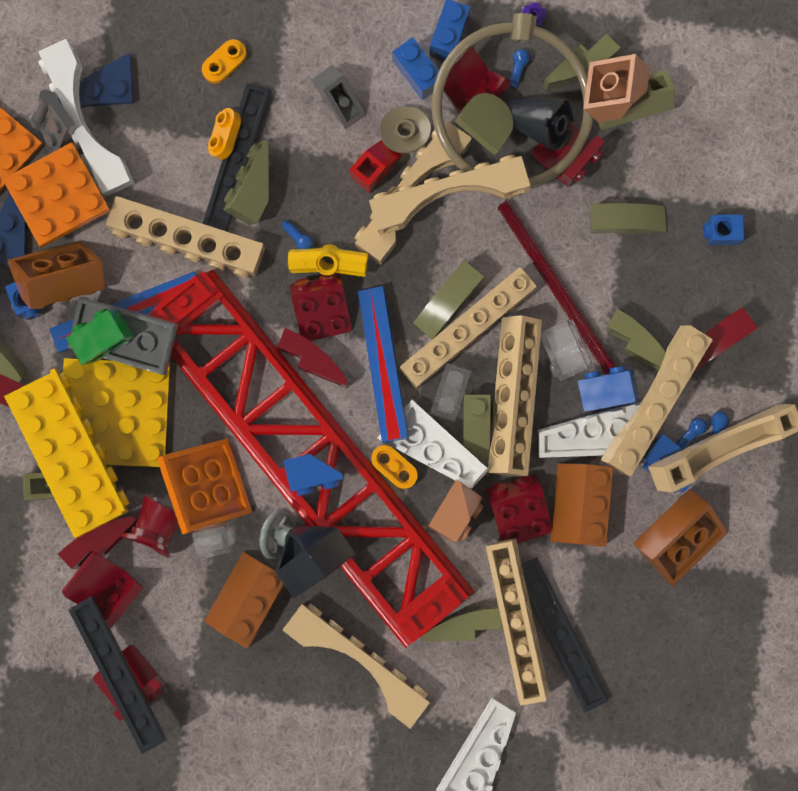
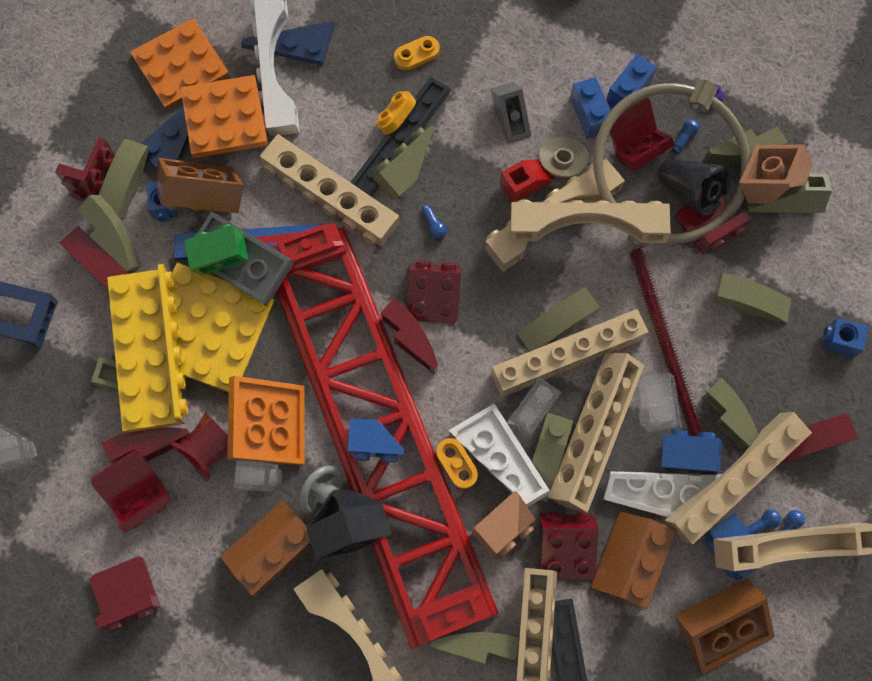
camera: 15 degrees right, 10 degrees down
(59, 125) = (248, 58): dark grey plate -> none
(117, 675) = (114, 582): black tile -> none
(312, 261) = (440, 247): yellow piece -> none
(383, 365) = (476, 364): blue tile -> none
(487, 121) = (644, 167): olive tile -> none

